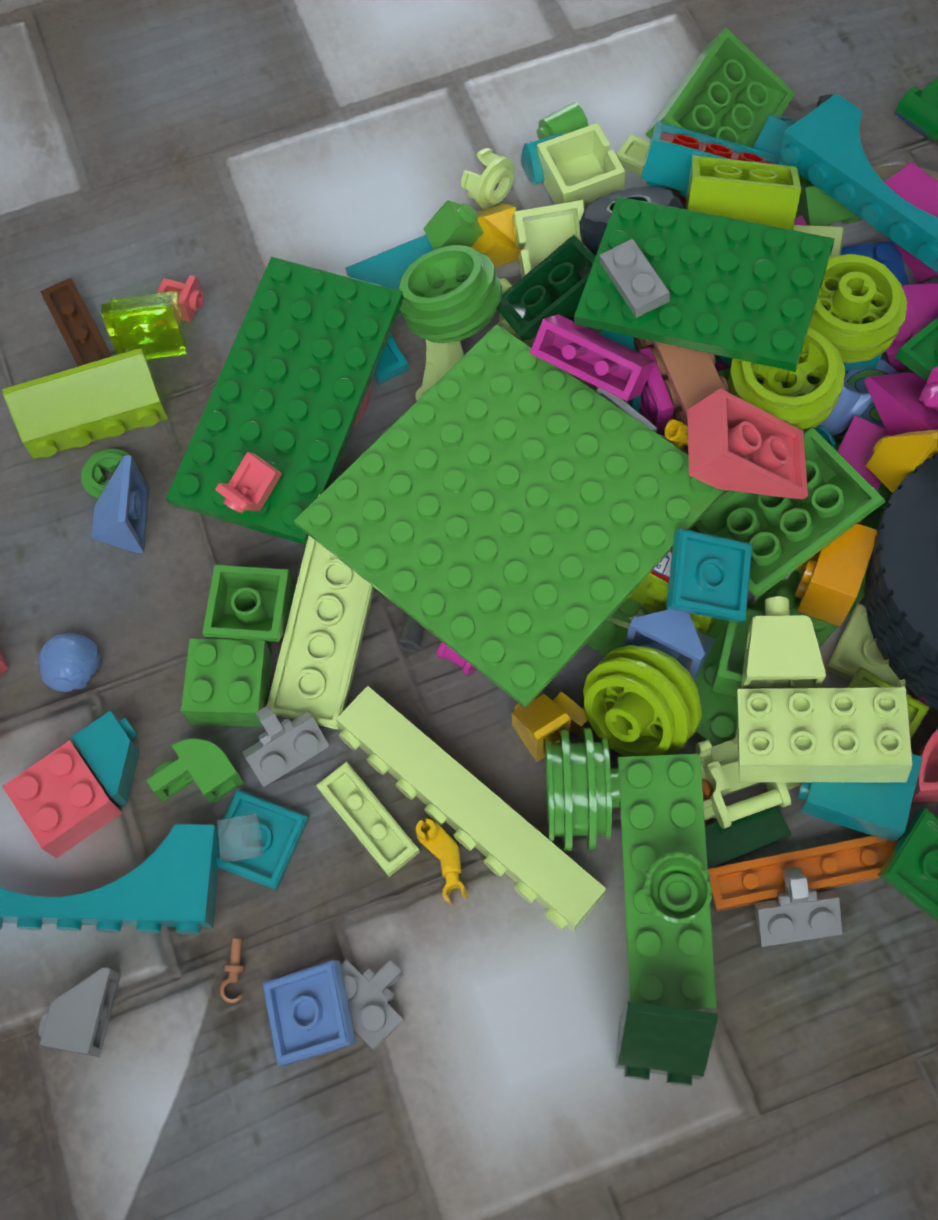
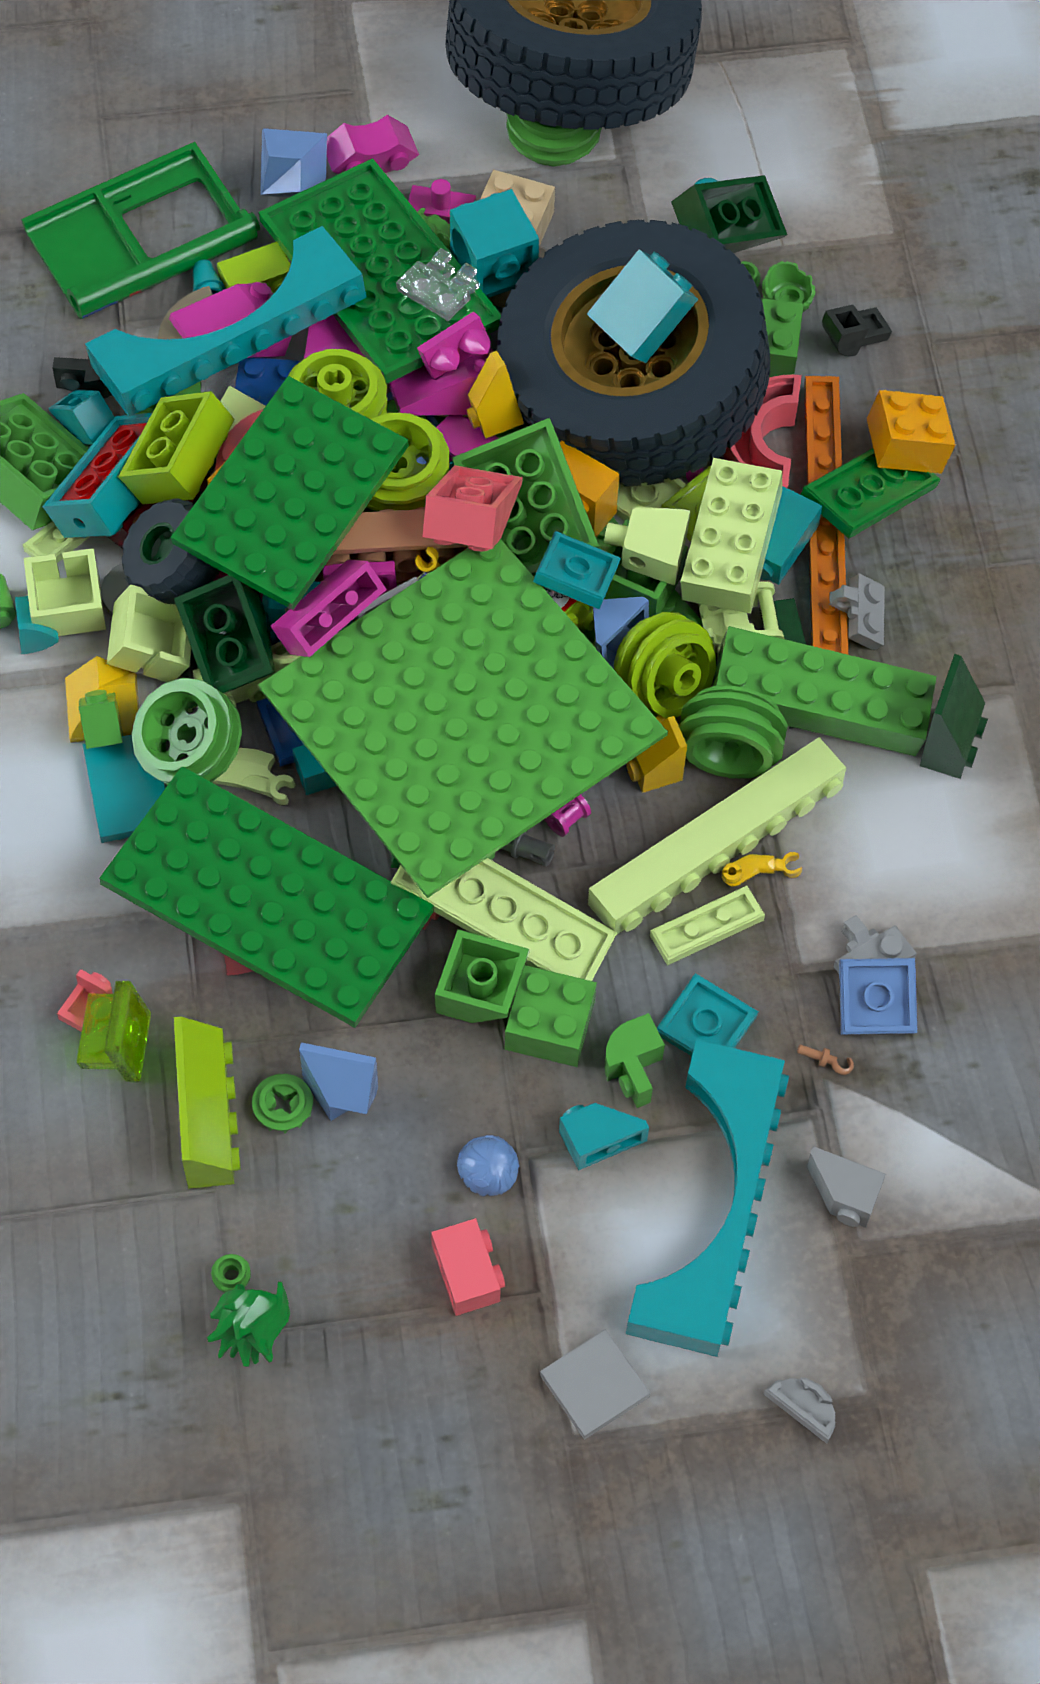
camera: 85 degrees left, 5 degrees down
(61, 800) = (636, 1179): coral brick -> none
(75, 323) = (102, 1109): reddish brown plate -> none
(239, 838) = (707, 1026): clear plate -> none
(250, 484) = (374, 929): coral bracket -> none
(283, 745) = (624, 972): light grey hinge -> none
(482, 187) = (40, 665): yellowish green piece -> none
(634, 278) = (278, 539): light grey plate -> none
(678, 888) = (844, 665): bright green hair -> none

